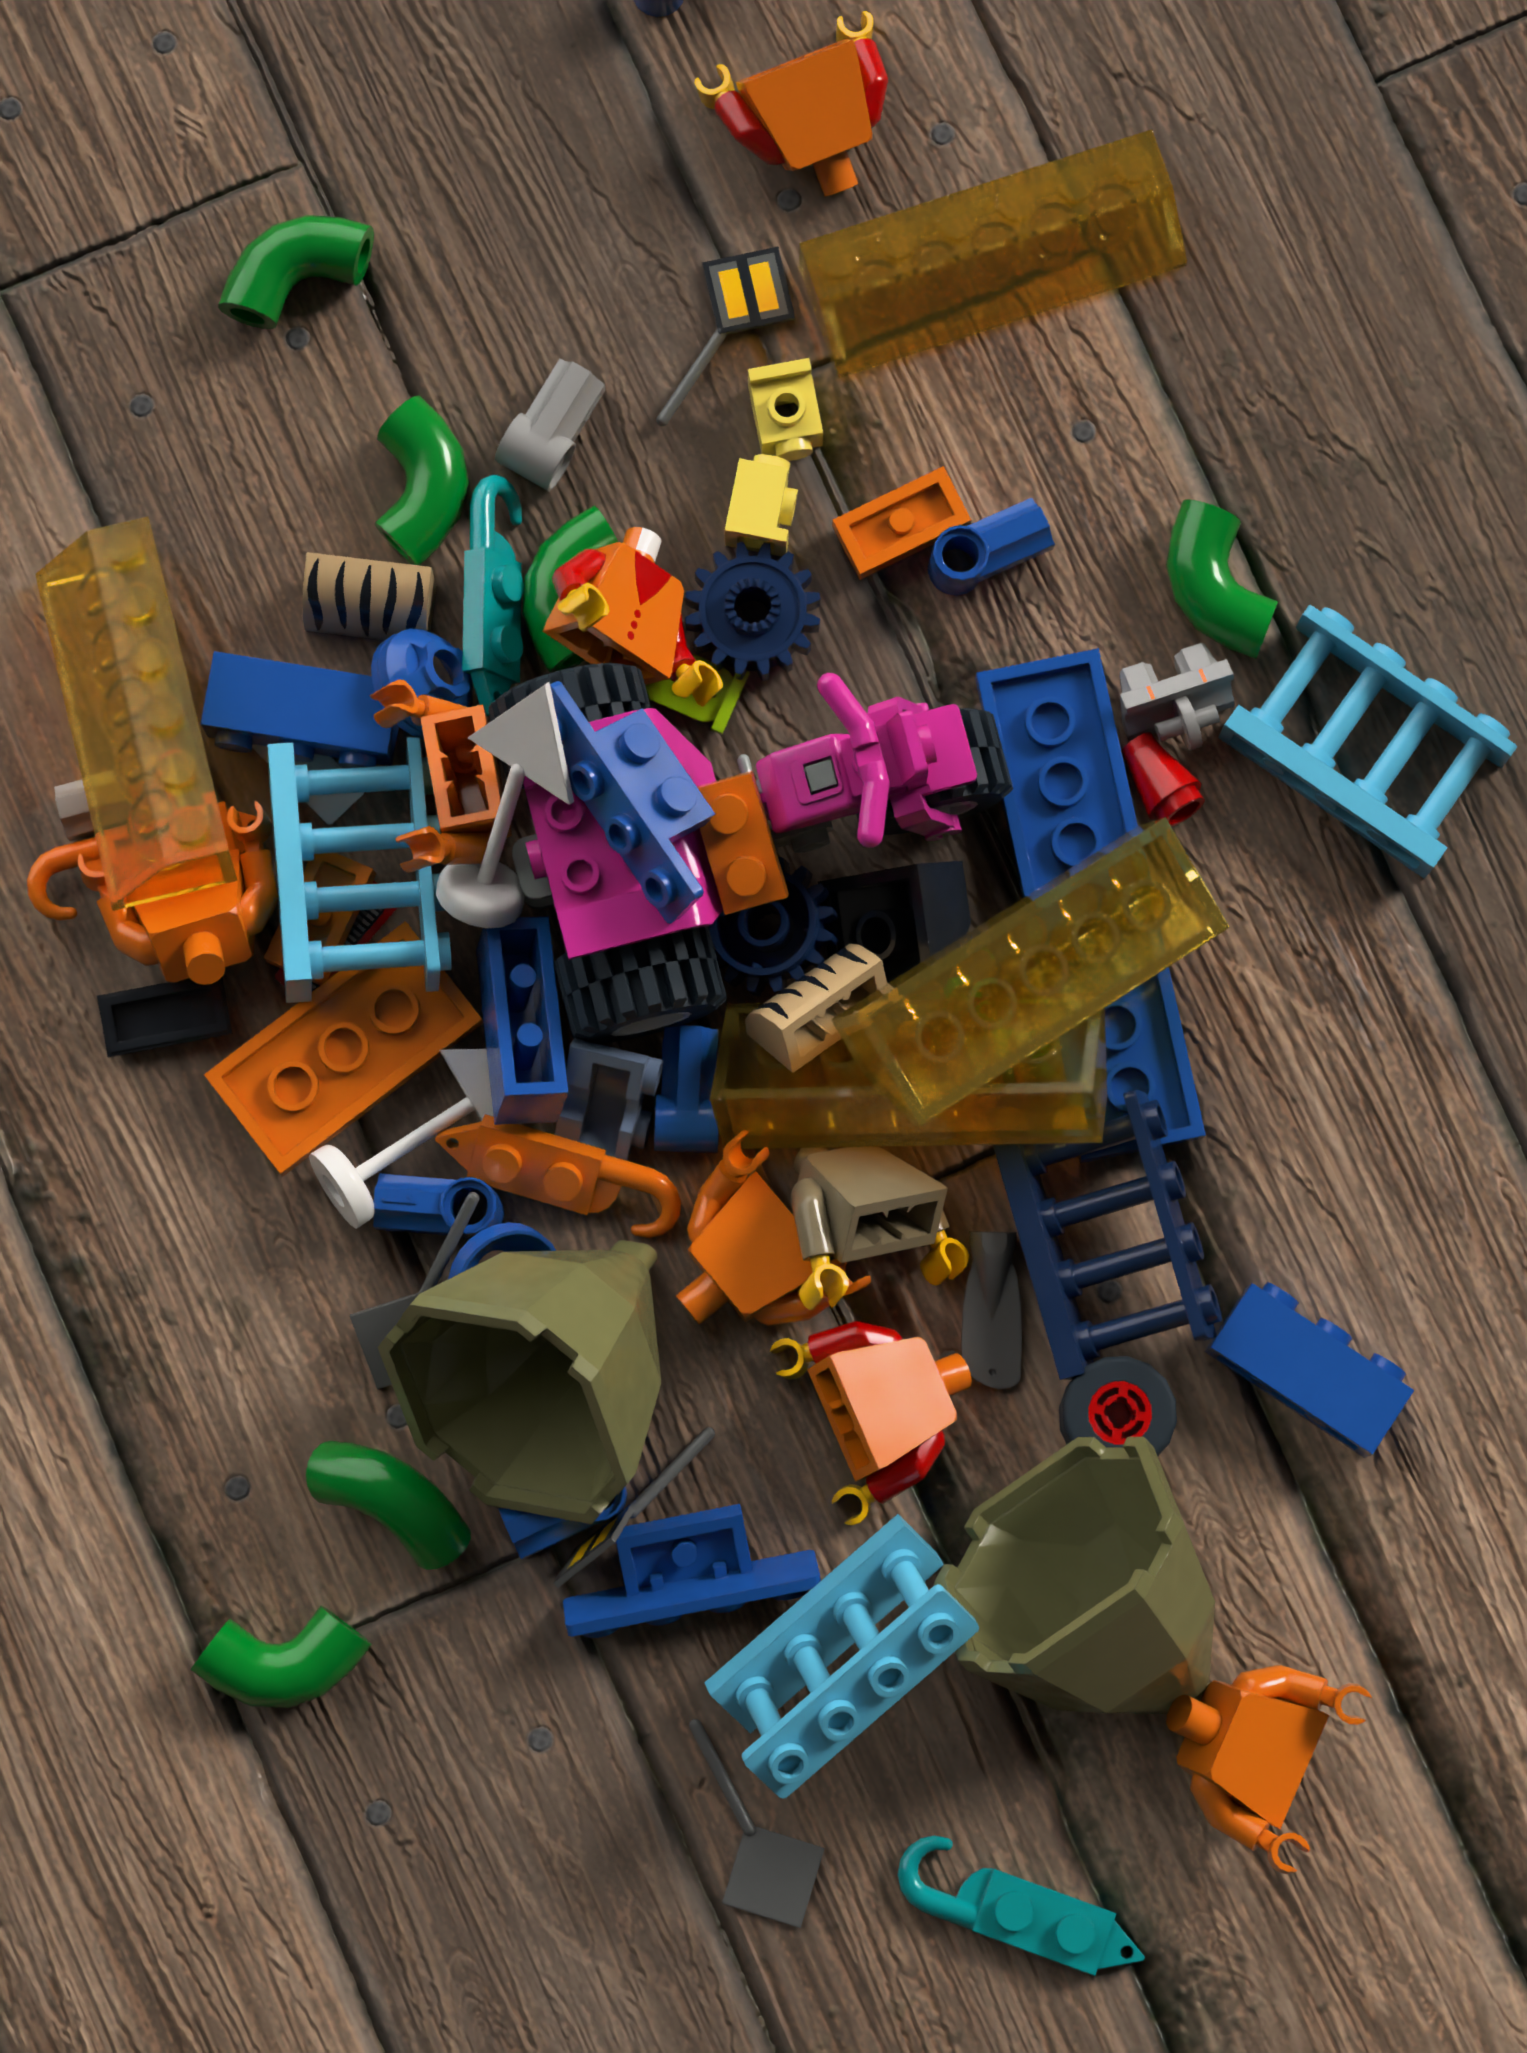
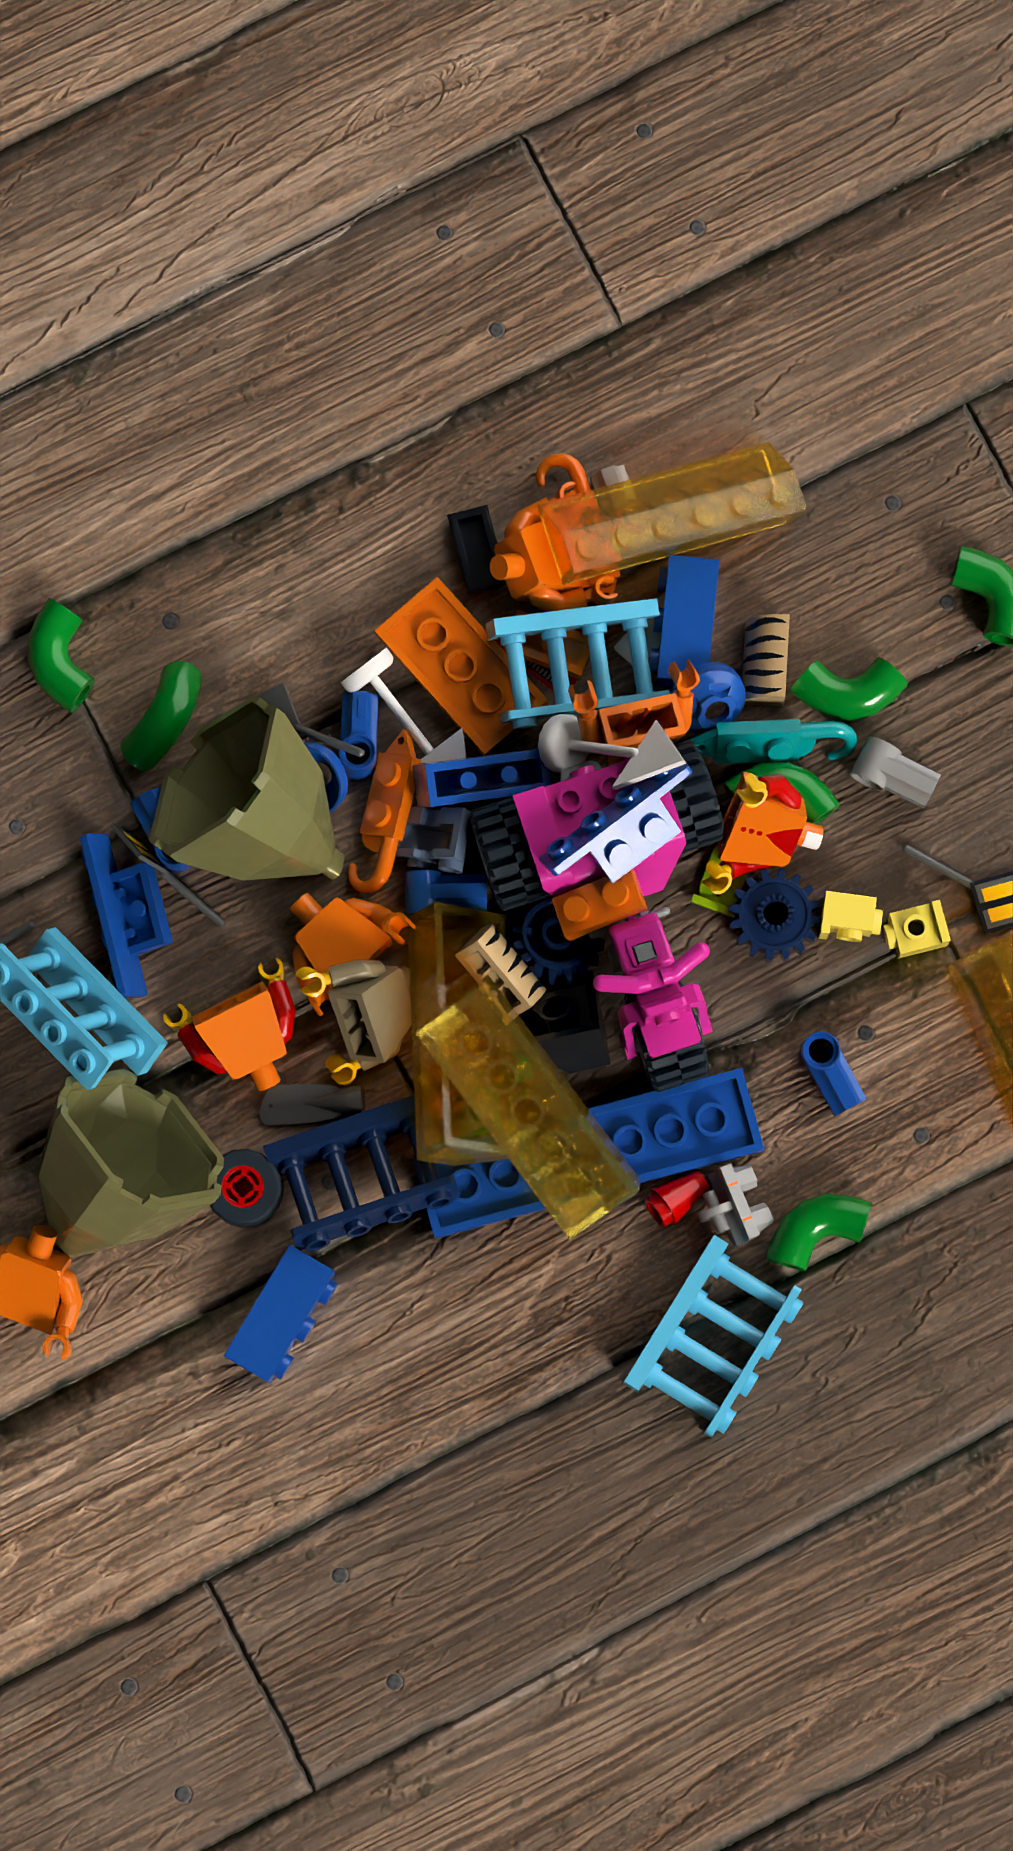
camera: 90 degrees right, 0 degrees up
(900, 522) = (844, 1012): orange plate -> none

